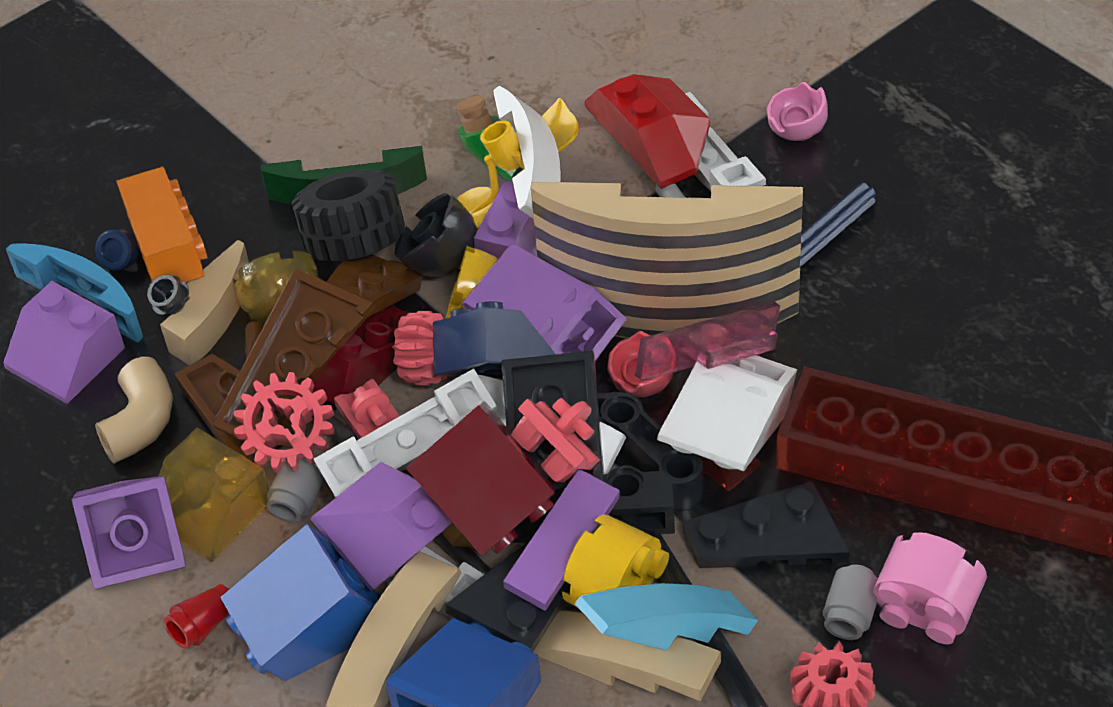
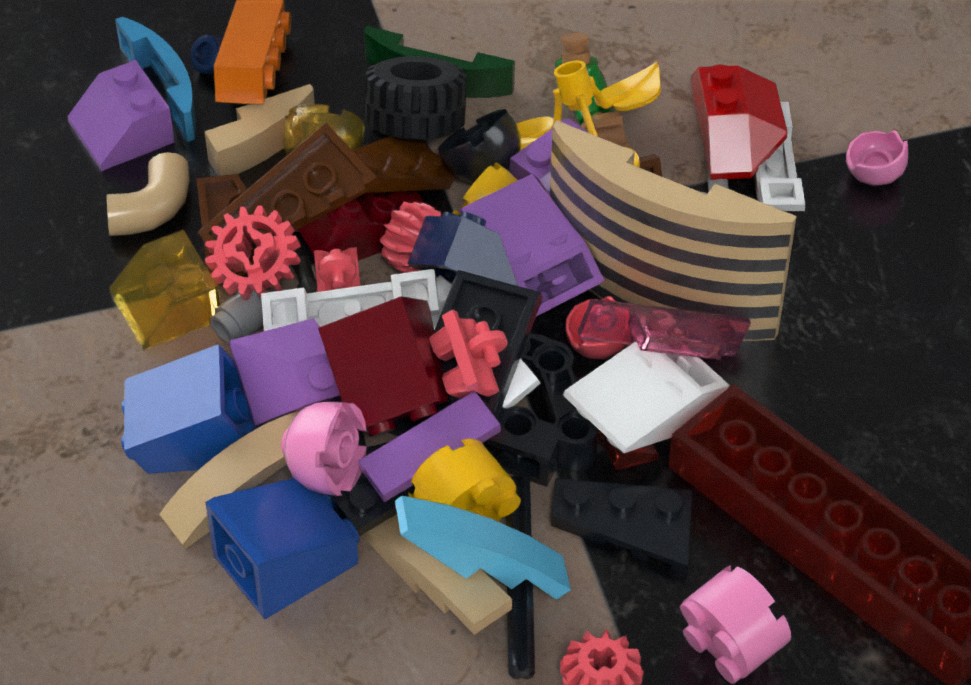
camera: 20 degrees right, 0 degrees up
(128, 530) = (83, 294): medium lavender slope -> none
(161, 290) = (222, 107): black plate -> none
(196, 617) = (100, 389): red cone -> none
(465, 582) = (325, 447): none -> bright pink cylinder
(536, 146) = (605, 91): white slope -> none
(835, 220) = (848, 271): axle -> none
(850, 602) = (658, 609): light grey brick -> none

